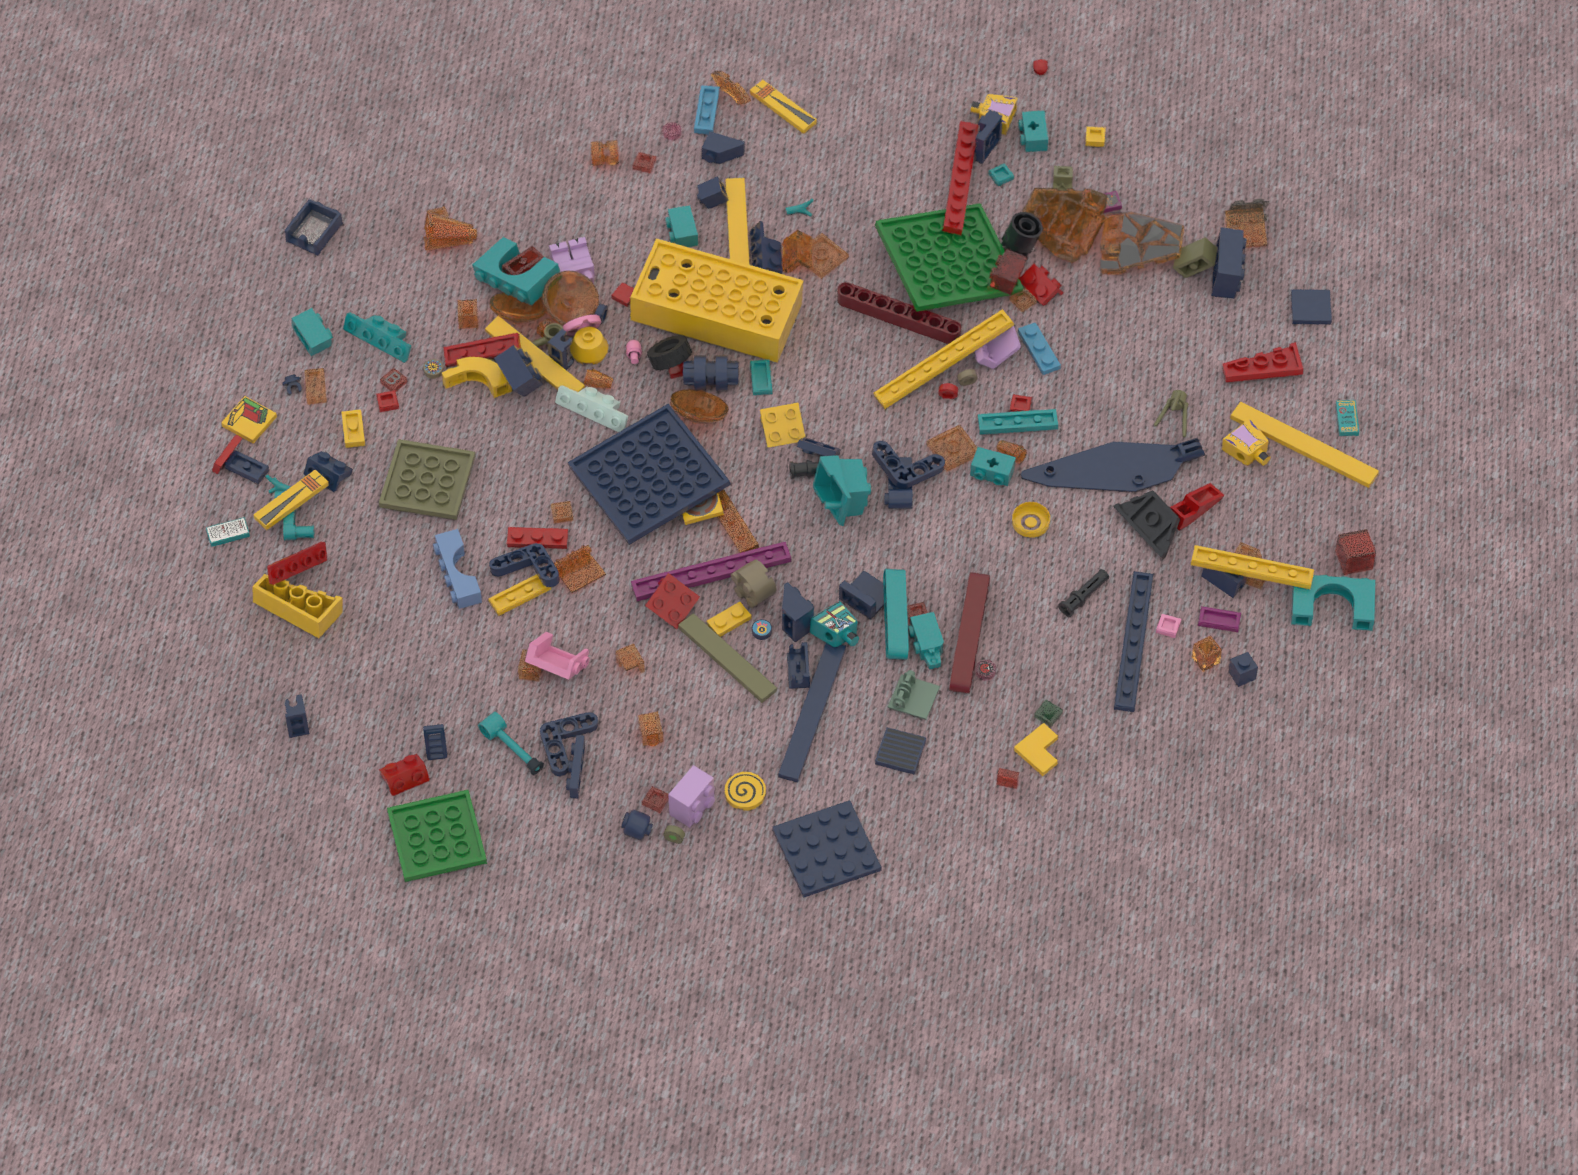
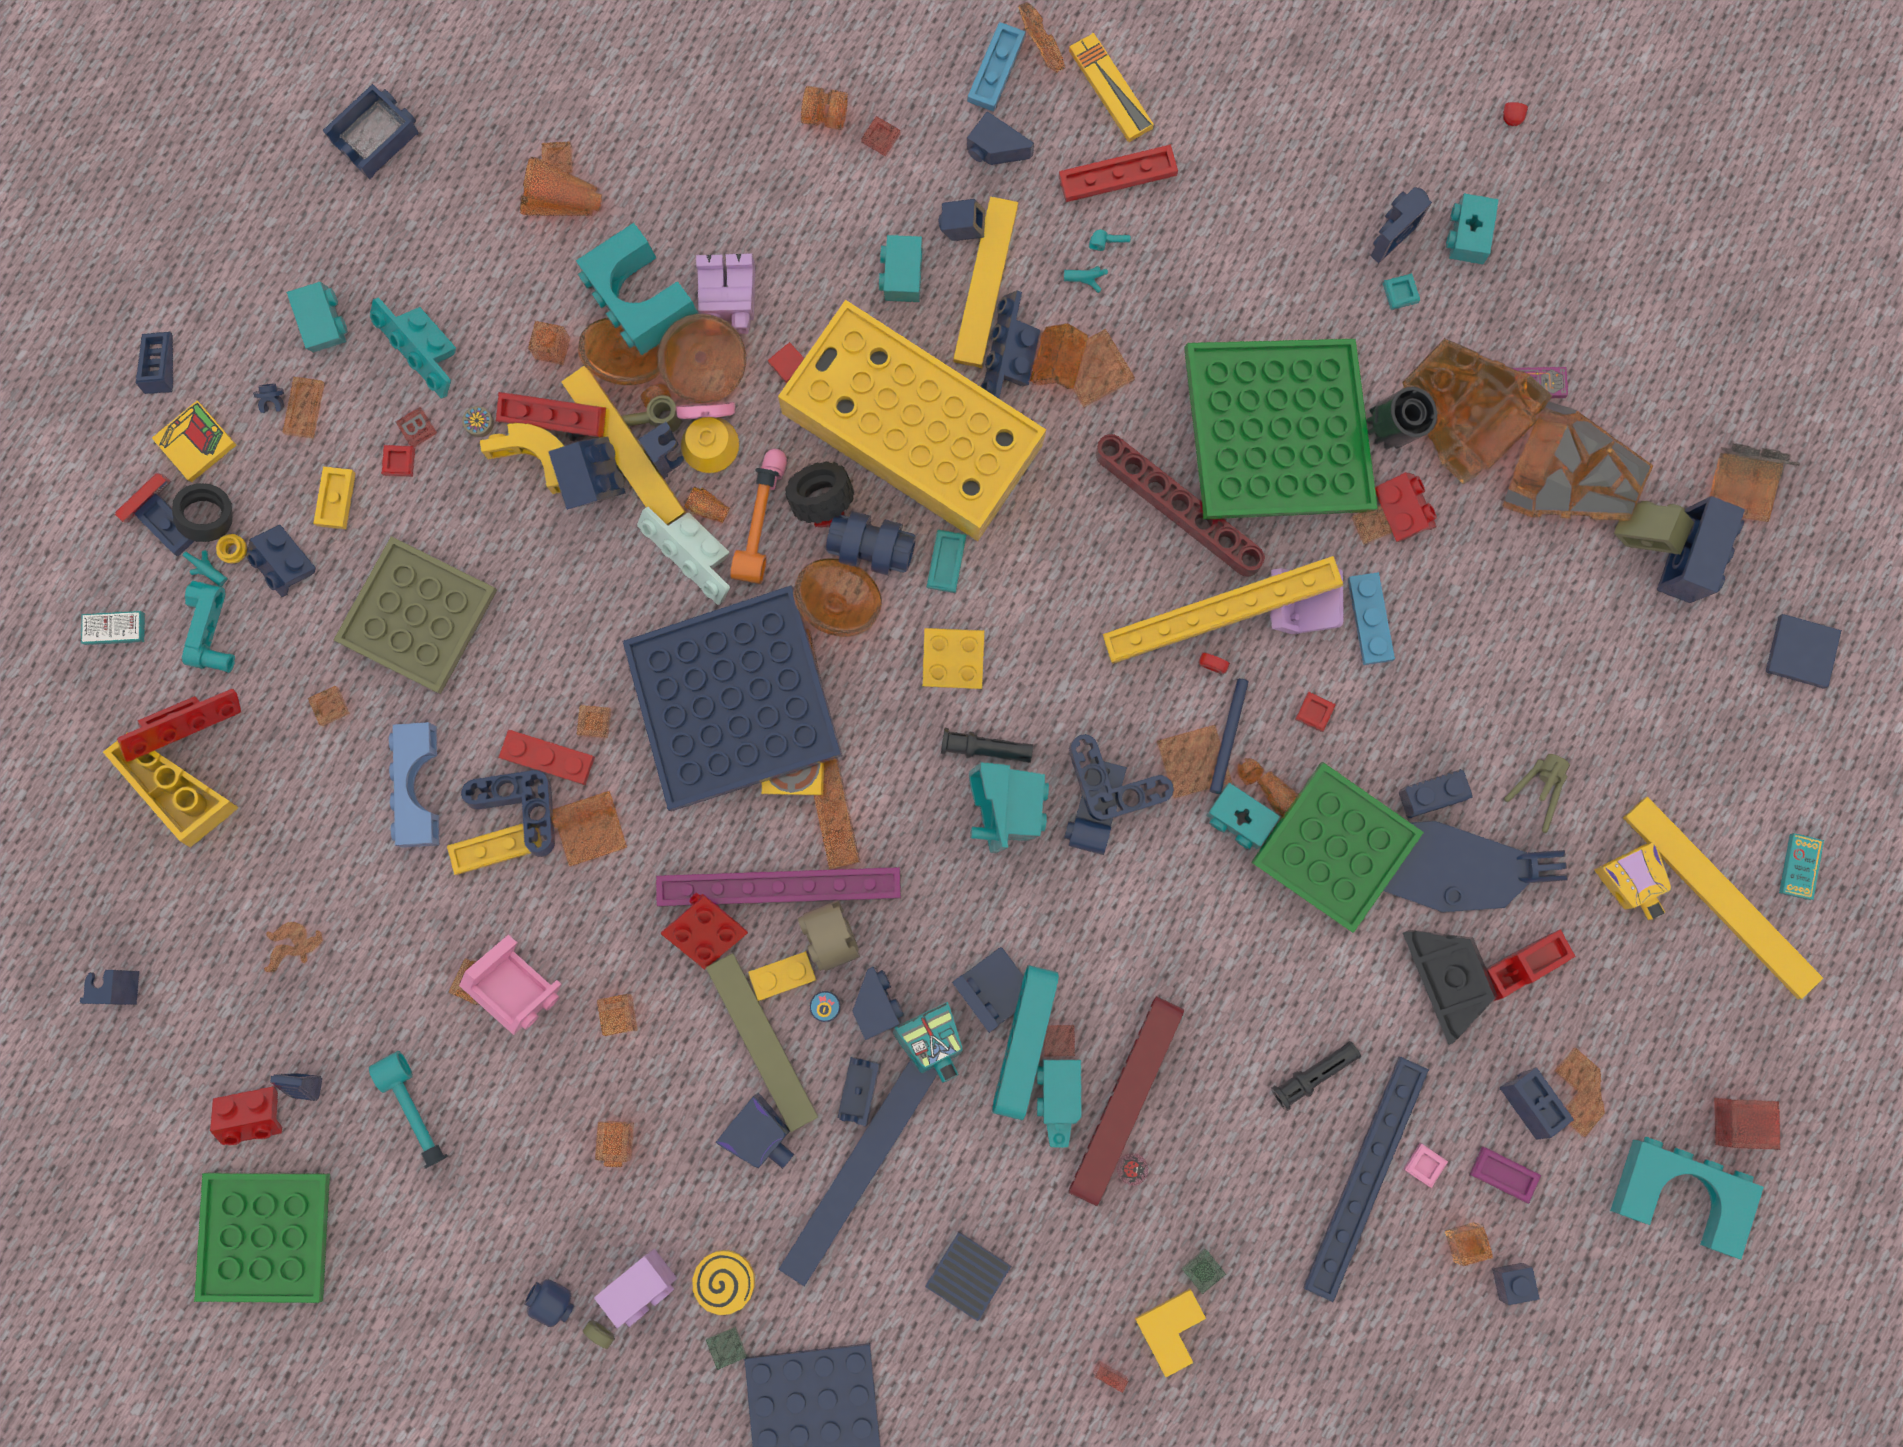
camera: 20 degrees right, 25 degrees up
(212, 393) = (157, 380): none -> dark blue slope
(270, 460) = (196, 493): none -> black tyre
(290, 499) = (203, 609): yellow tile -> none
(293, 466) = (223, 545): none -> yellow plate
(385, 542) = (328, 705): none -> clear orange tile
(404, 670) = (298, 936): none -> clear orange piece
(522, 262) = (648, 279): clear red brick -> none
(559, 734) = (487, 1107): dark blue beam -> none
(576, 766) = (490, 1177): dark blue plate -> none
(602, 311) = (742, 390): dark blue tile -> none
(635, 403) = (749, 564): none -> orange piece
(655, 799) = (592, 1259): clear red tile -> none
(672, 131) = (936, 90): clear pink tile -> none
(741, 703) = (757, 1135): none -> dark blue torso
(758, 826) = (726, 1348): none -> clear green tile
(802, 149) = (1118, 173): none -> red plate
(802, 186) = (1100, 237): none -> teal hand
(811, 446) = (994, 713): dark blue plate -> none
(913, 696) = (1013, 1187): sand green hinge -> none
(960, 178) = (1338, 288): red plate -> none
(967, 377) = (1249, 646): dark tan tile -> none
(970, 427) = (1228, 736): none -> dark blue bar
(993, 441) = (1250, 771): none -> clear orange hinge
(1001, 104) = (1426, 171): torso -> none
(1008, 271) = (1362, 480): clear red brick -> none
(1017, 421) = (1302, 743): teal plate -> none
(1031, 508) = (1273, 923): yellow piece -> none
(1056, 466) = (1337, 847): none -> green plate
(1062, 177) = (1490, 328): olive slope -> none
(1095, 136) = (1562, 260): yellow plate -> none
(1108, 427) = (1435, 793): none -> dark blue brick
(1252, 567) = (1583, 1118): yellow tile -> none
(1262, 366) = (1718, 742): red wing -> none

